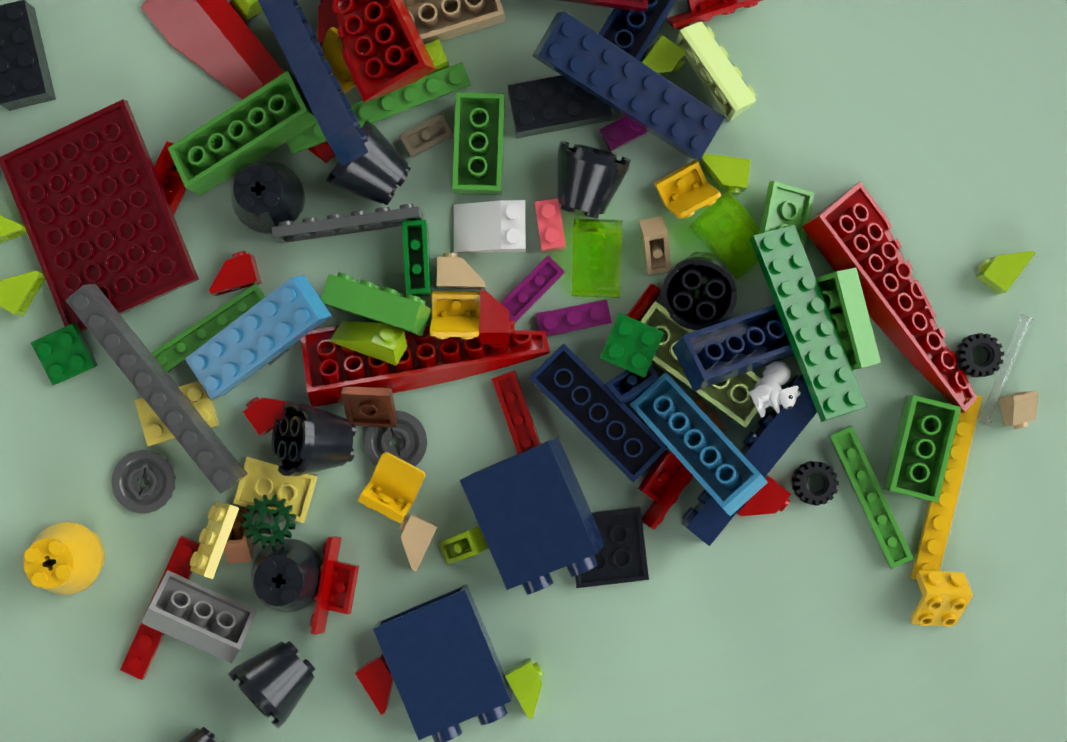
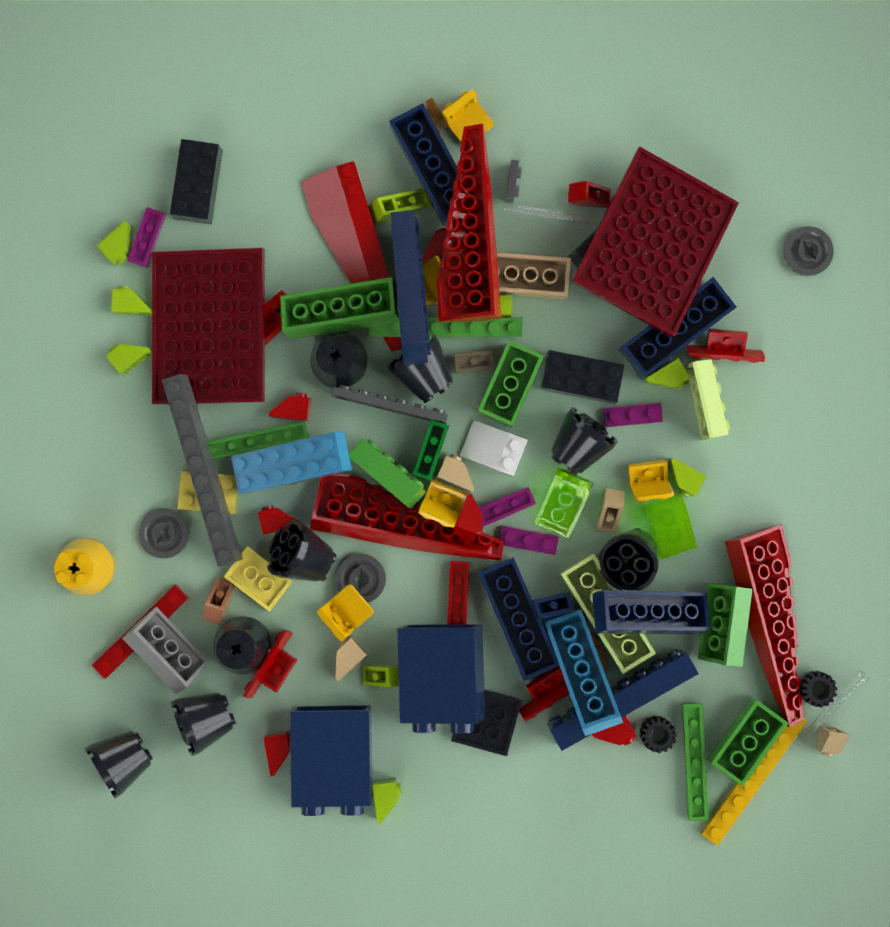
camera: 20 degrees right, 0 degrees up
(64, 354) = (143, 416): green plate -> none
(213, 539) = (199, 598): light yellow plate -> none
(261, 527) = (236, 603): dark green gear -> none
(369, 406) = (352, 546): copper plate -> none
(372, 339) = (373, 497): lime slope -> none
(550, 225) = (538, 465): coral brick -> none
(628, 85) = (637, 387): dark blue brick -> none
(631, 345) = (563, 579): green plate -> none
(644, 302) = (575, 556): red axle -> none
(768, 389) = (651, 652): white animal -> none
(786, 207) = (714, 527): bright green plate -> none
(807, 323) = (699, 616): plate -> none
(943, 598) = (718, 858): yellow bracket -> none
(1003, 270) = (861, 633): lime slope -> none

